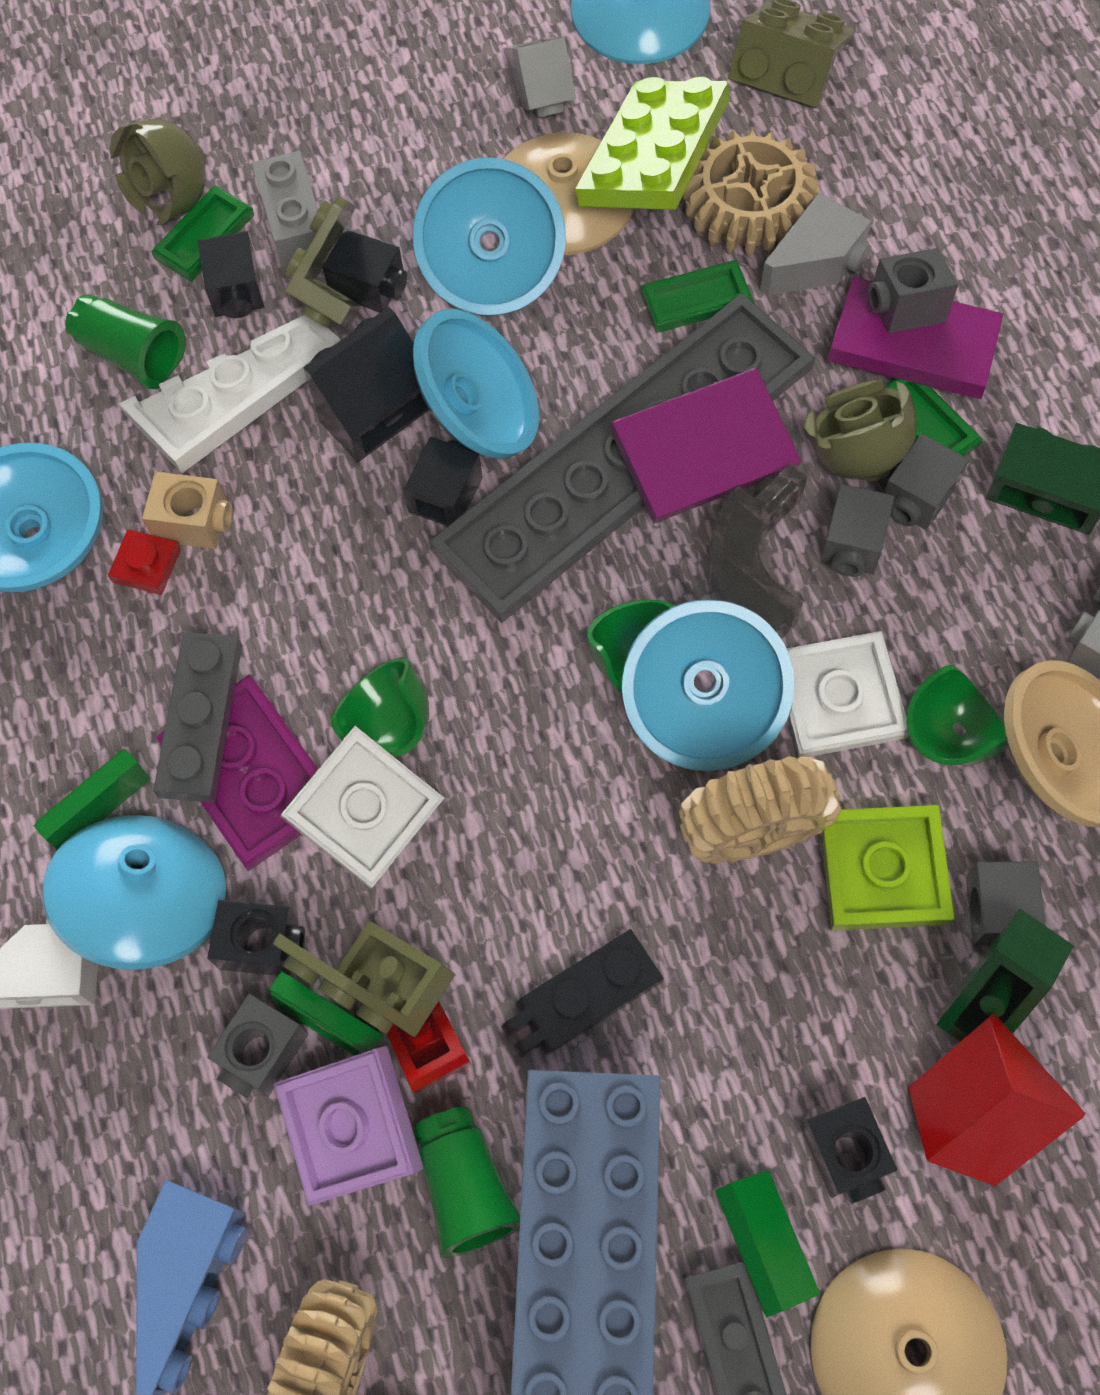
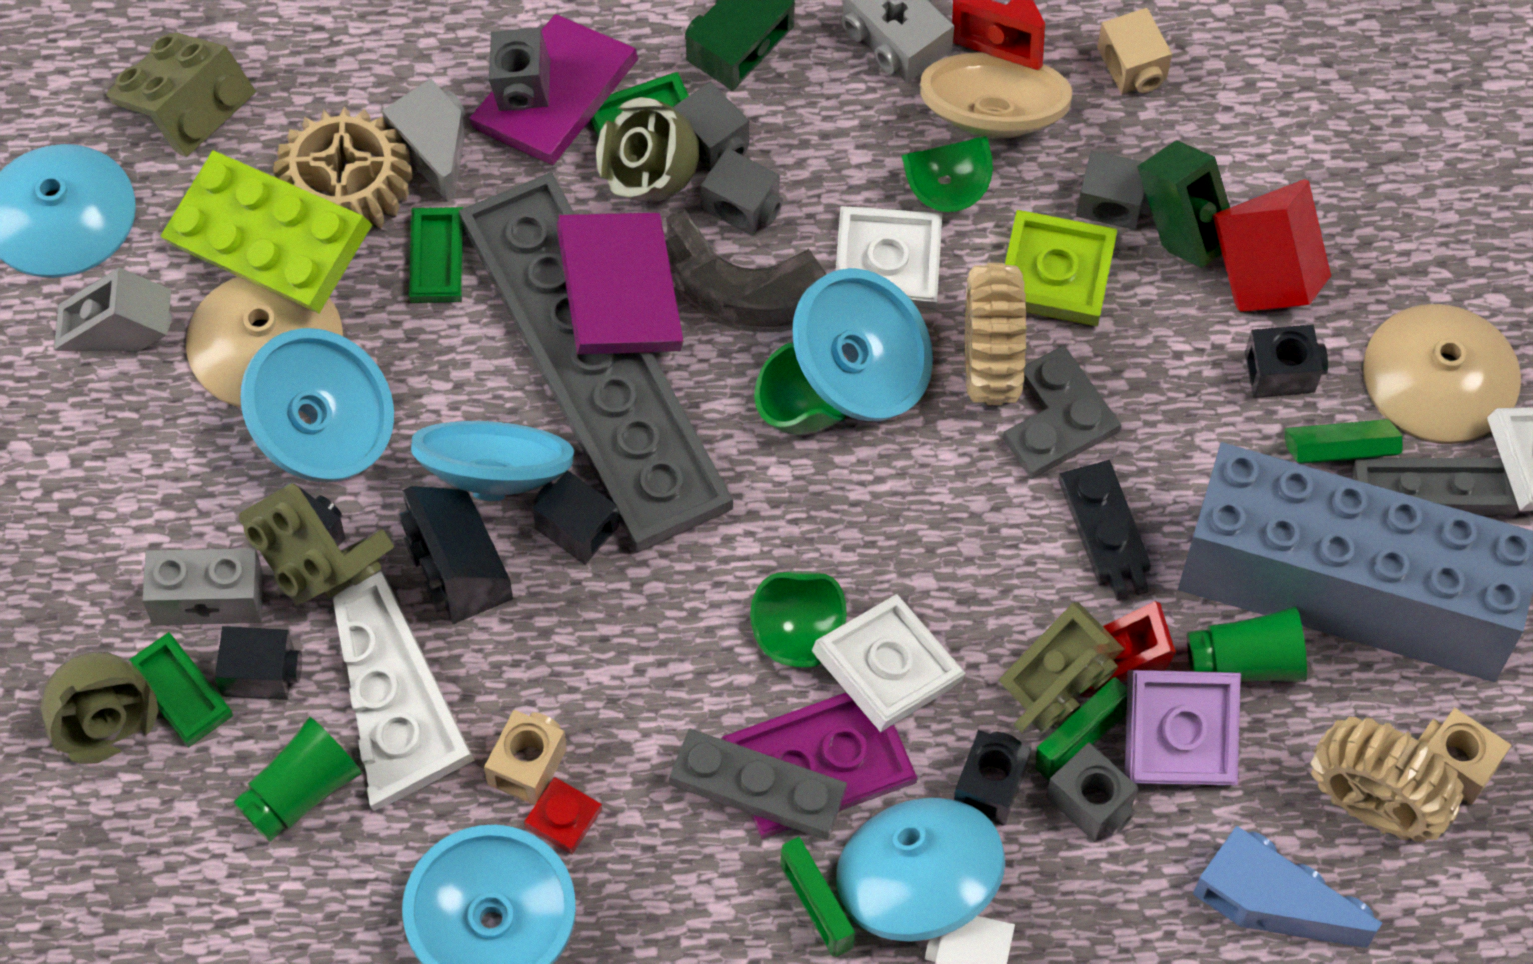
camera: 80 degrees left, 5 degrees down
(703, 929) = (1071, 416): none -> dark grey plate

